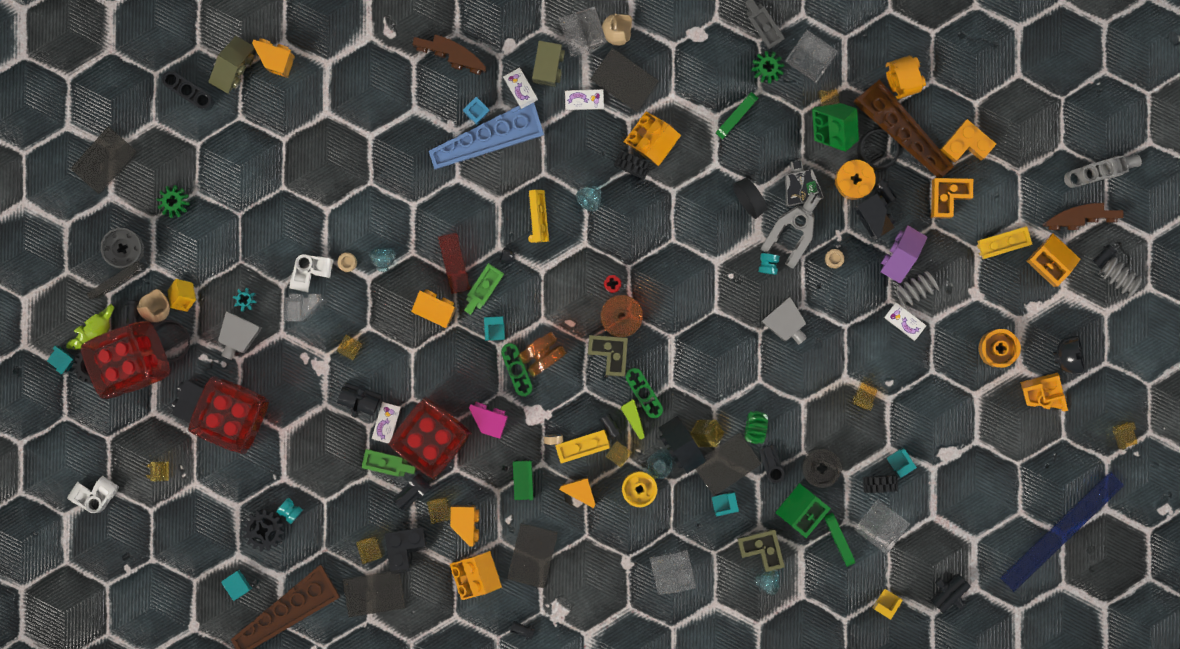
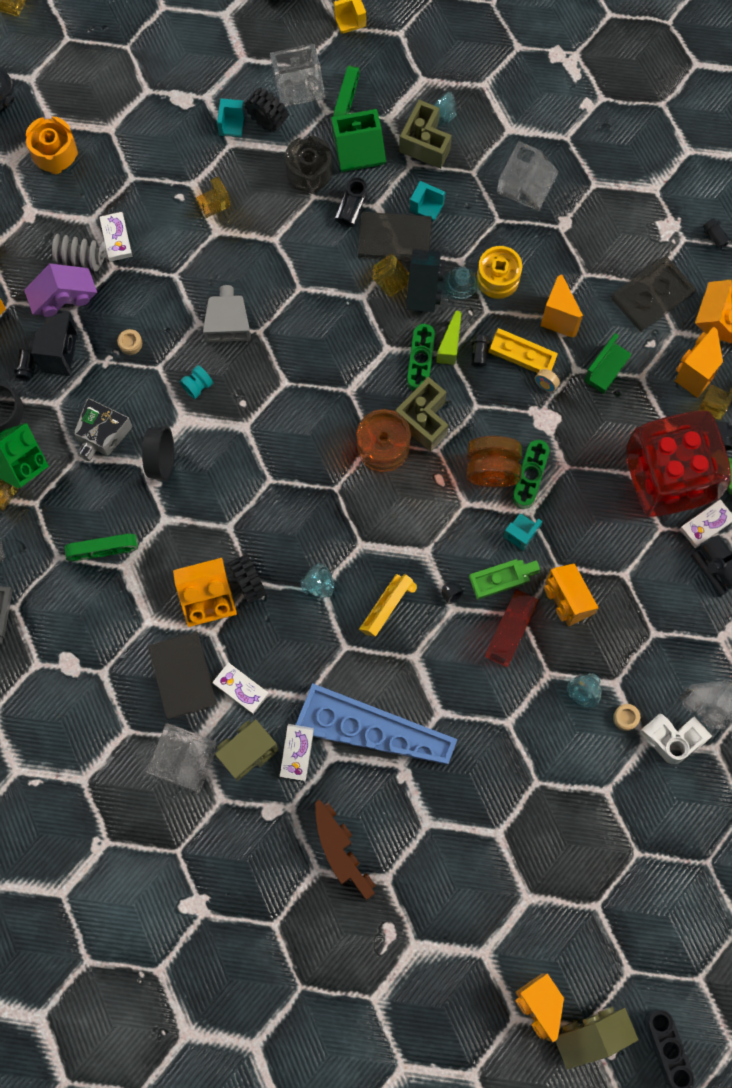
camera: 145 degrees left, 15 degrees down
(349, 347) = (690, 627): clear yellow tile -> none
(476, 111) = (363, 764): dark azure panel -> none
(489, 421) = (599, 440): dark pink slope -> none
(617, 28) = (143, 731): tan hair -> none
(617, 287) = (363, 474): red bush -> none
(618, 454) = (493, 317): clear yellow tile -> none
(756, 427) = (339, 242): green gear -> none
(763, 72) = (29, 561): green gear -> none
(790, 218) = (140, 406): light grey piece -> none
(863, 172) = (37, 383): light orange brick -> none
(1044, 392) = (47, 84): light orange slope -> none

